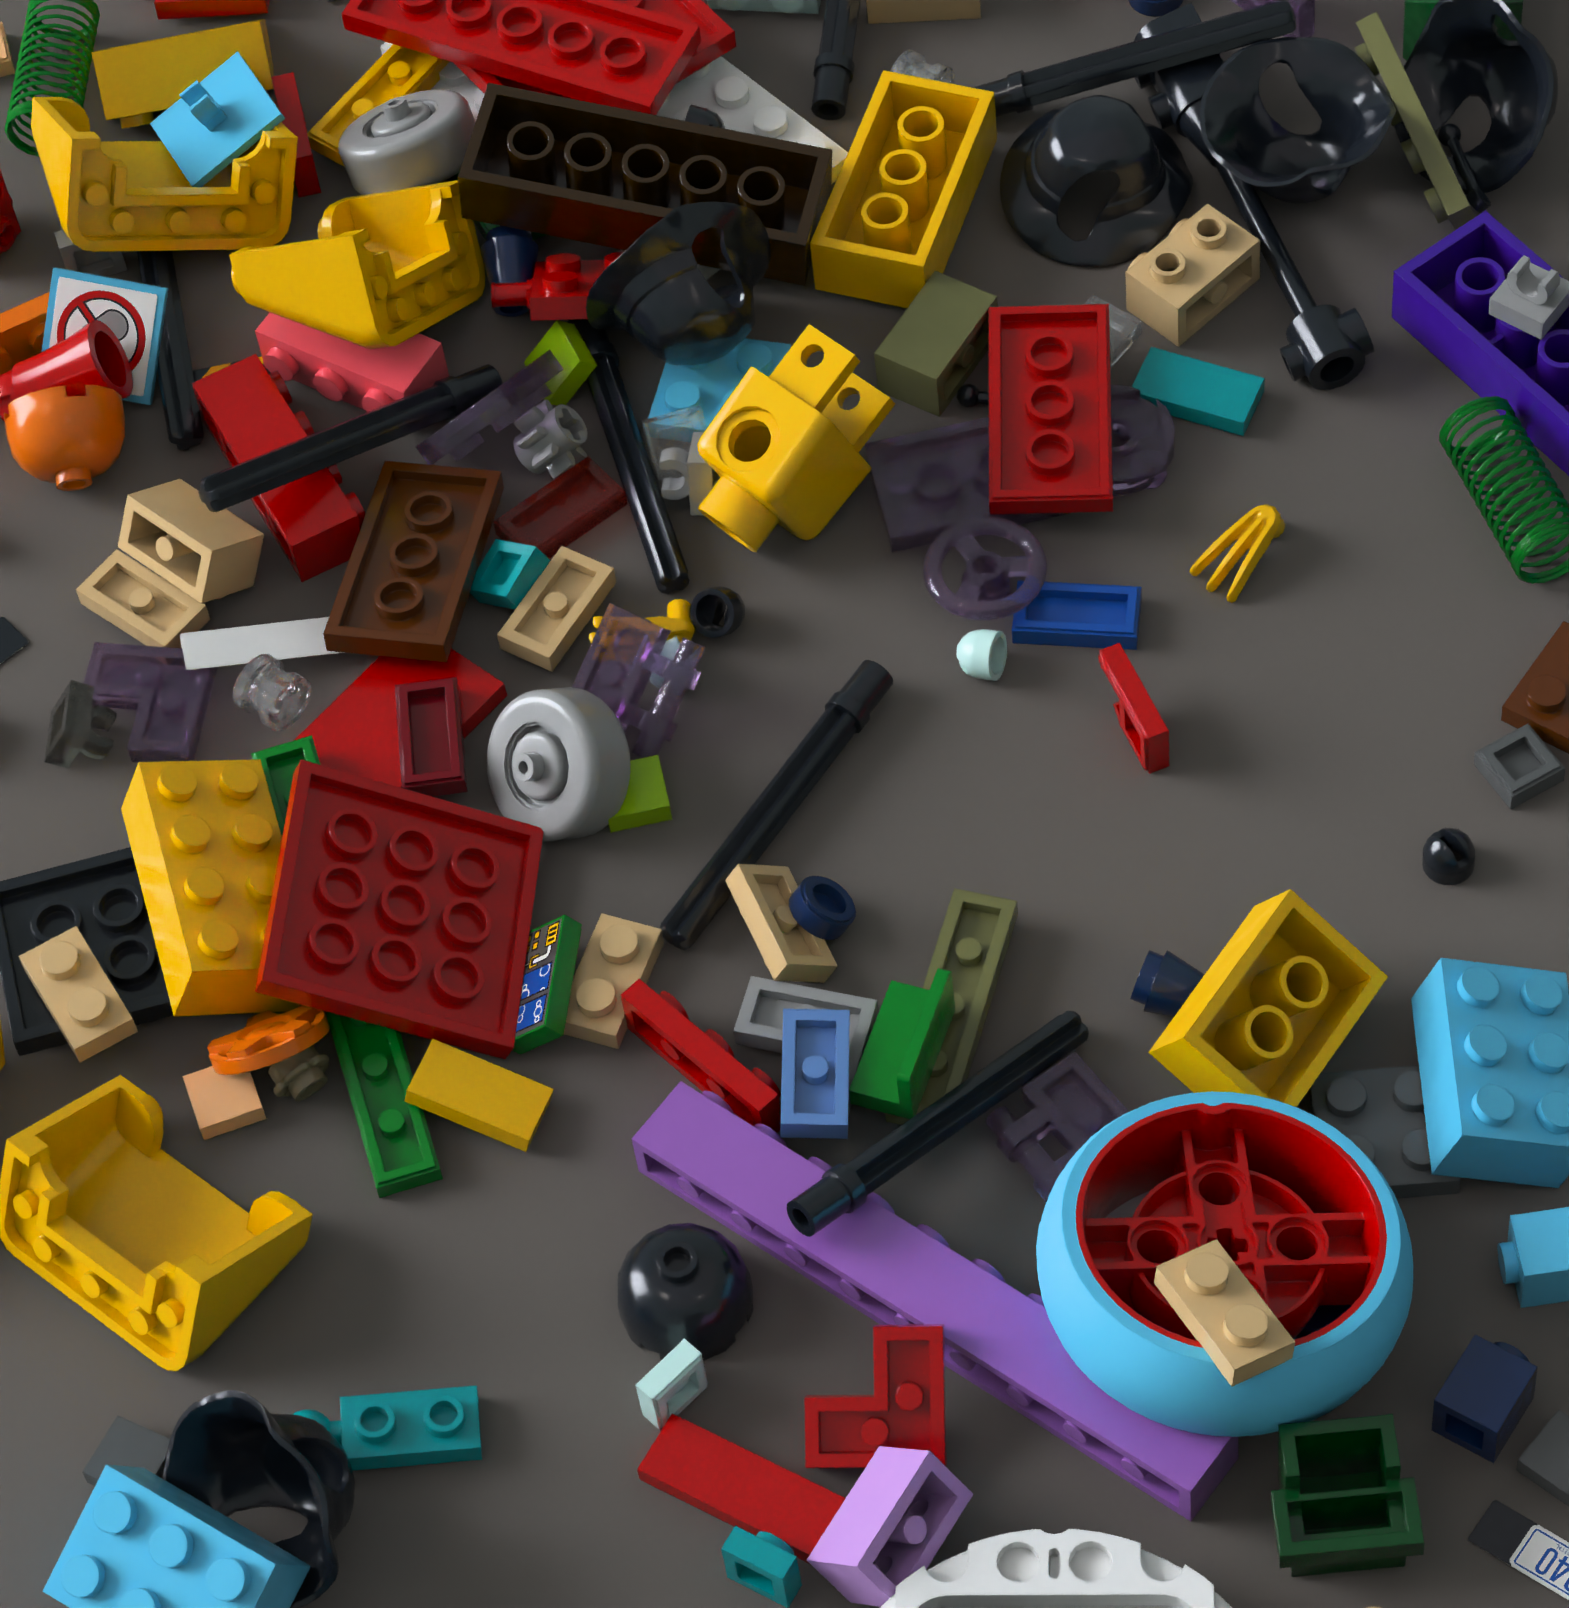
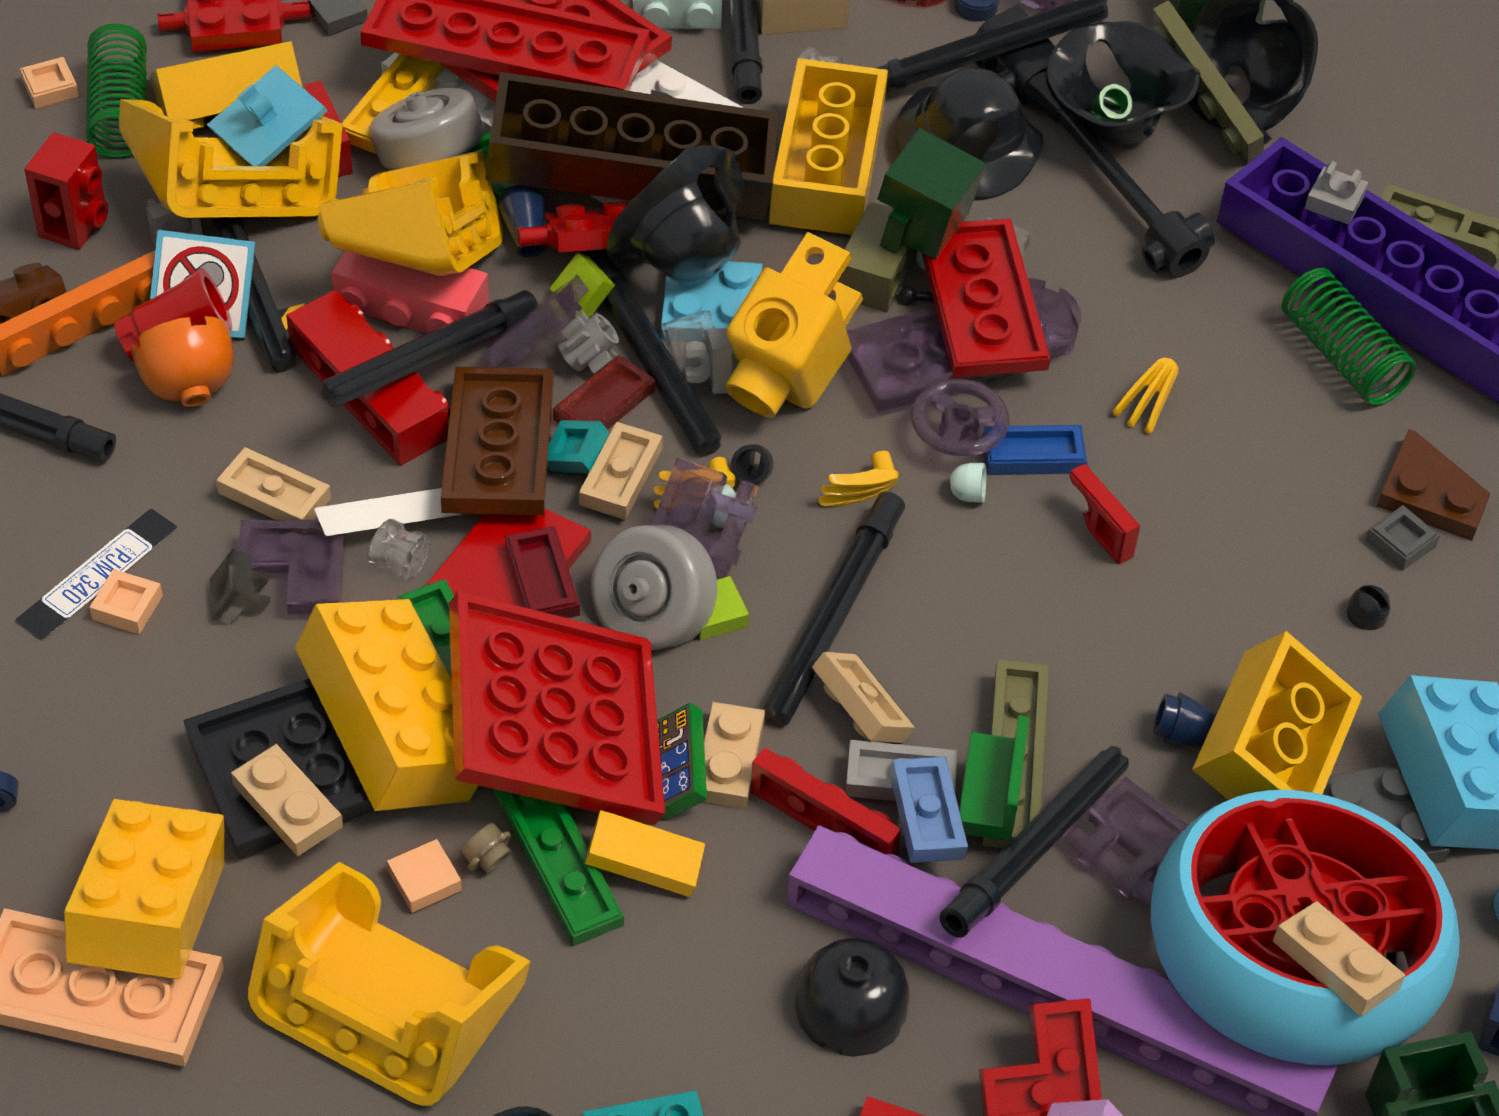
camera: 20 degrees left, 5 degrees down
(187, 543) = (308, 435): tan brick -> none
(267, 1040) = (459, 823): orange wheel -> none
(672, 1384) = (863, 1072): light aqua tile -> none
(822, 907) = (893, 682): dark blue tile -> none
(847, 649) = (860, 486): none -> yellow piece
(993, 272) = (930, 194): none -> dark green plate
(1192, 274) = (1062, 197): tan brick -> none
(1200, 390) = (1088, 280): teal tile -> none
(1292, 138) = (1114, 98): none -> green hinge

